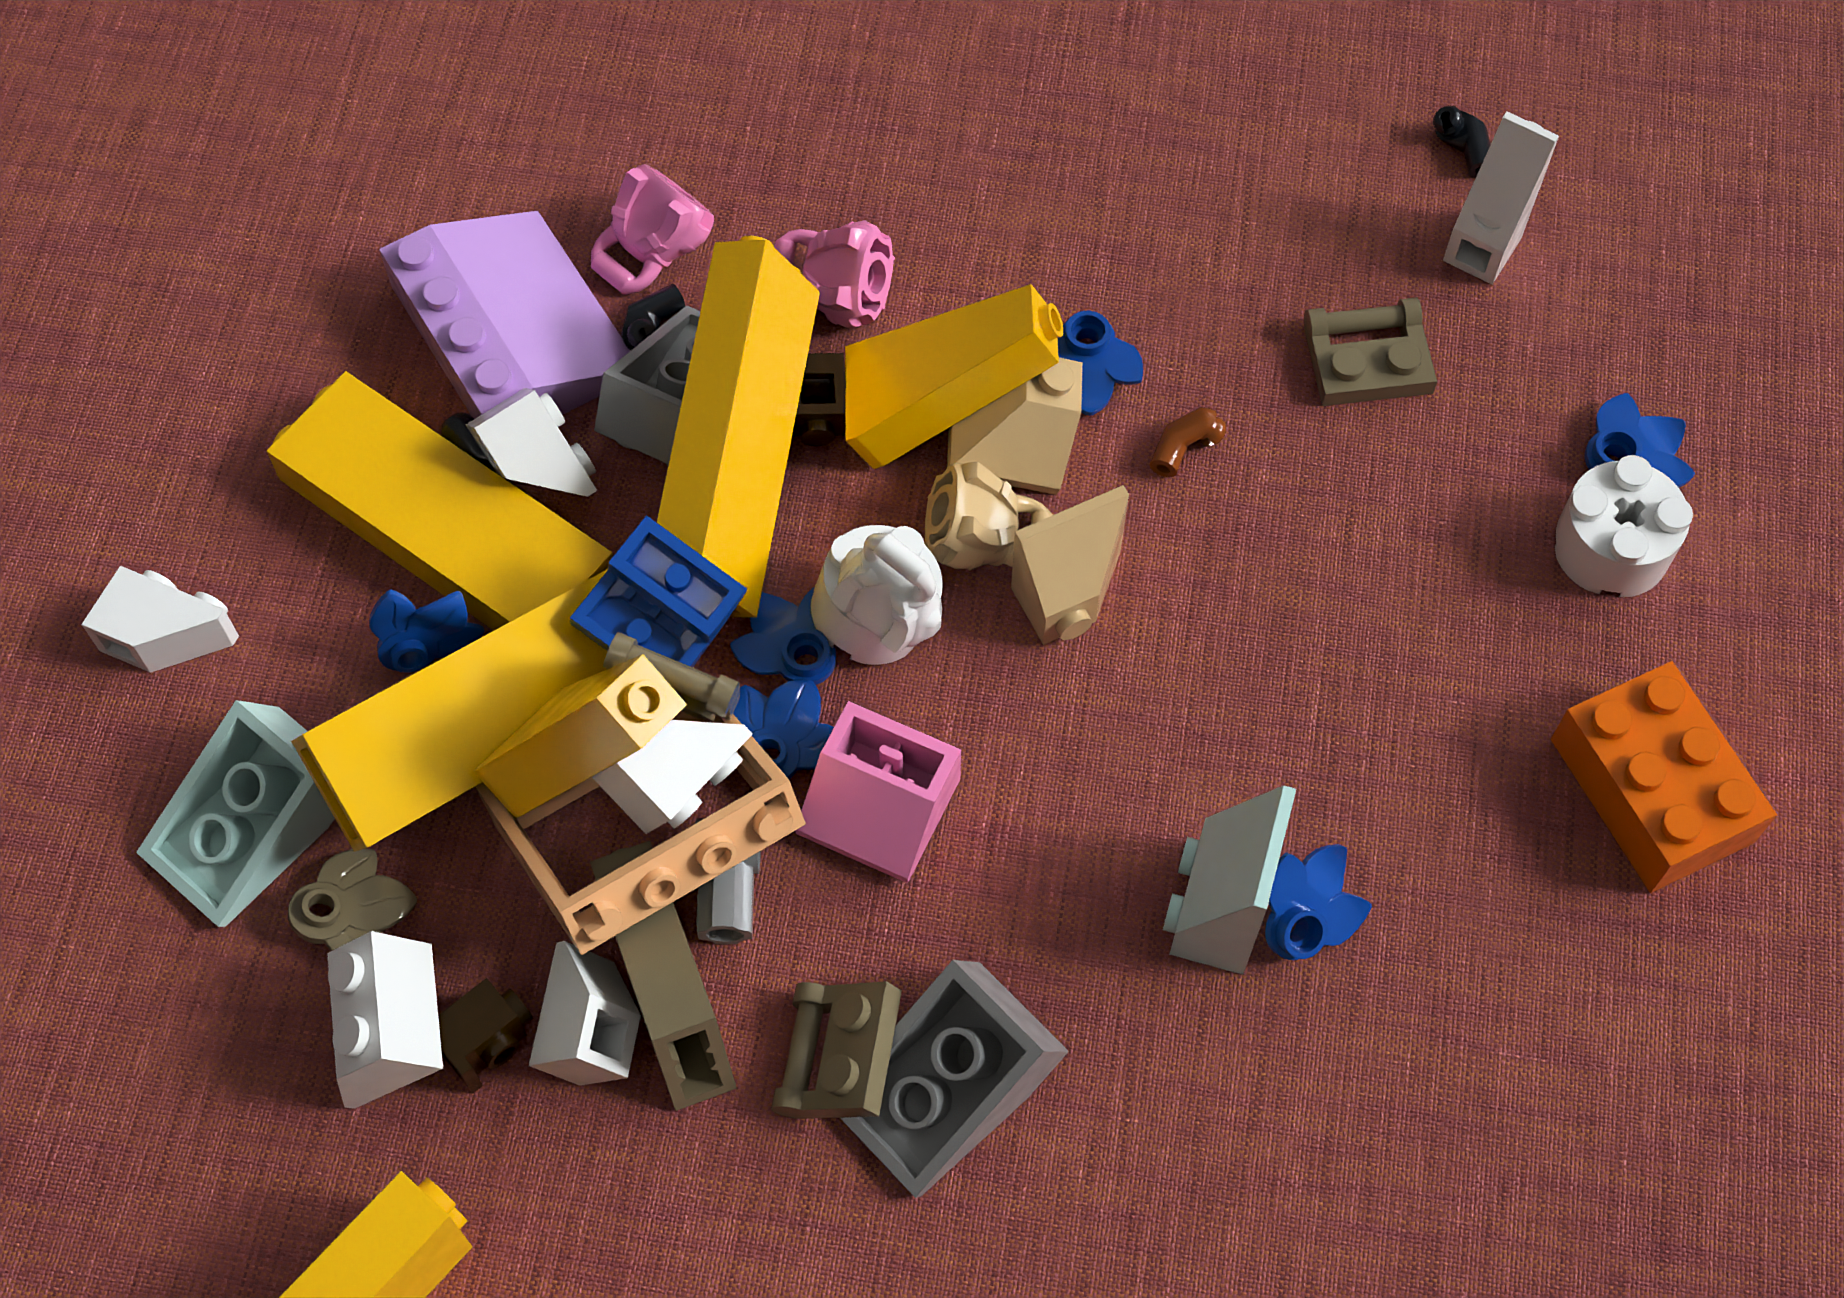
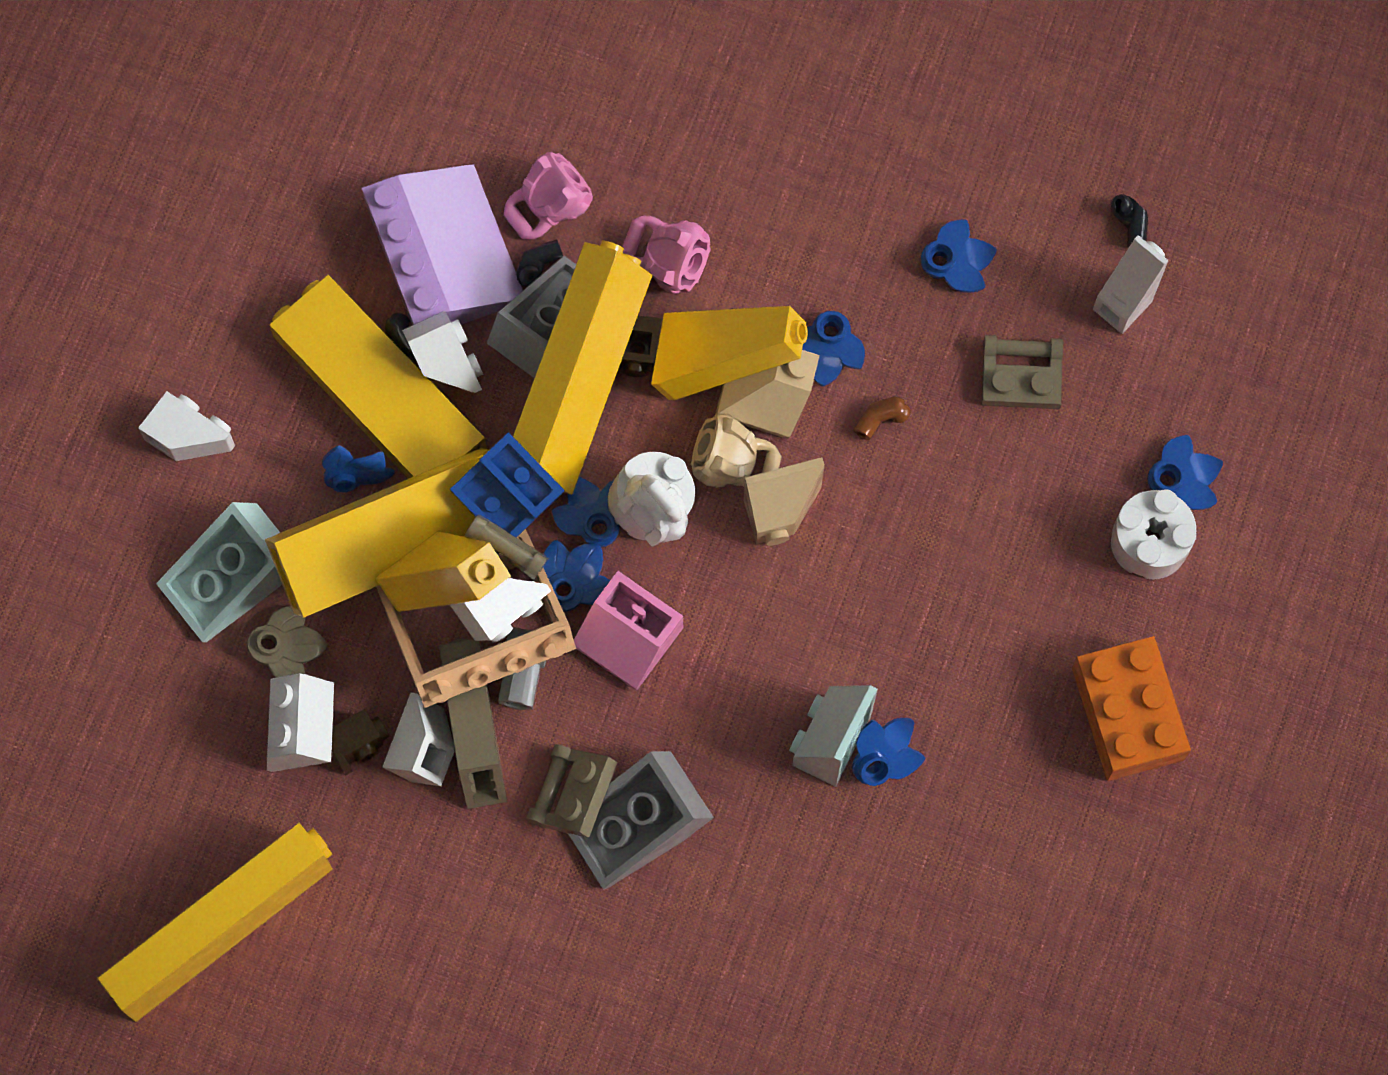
camera: 10 degrees right, 10 degrees up
(1247, 222) = (963, 257): none -> blue plate

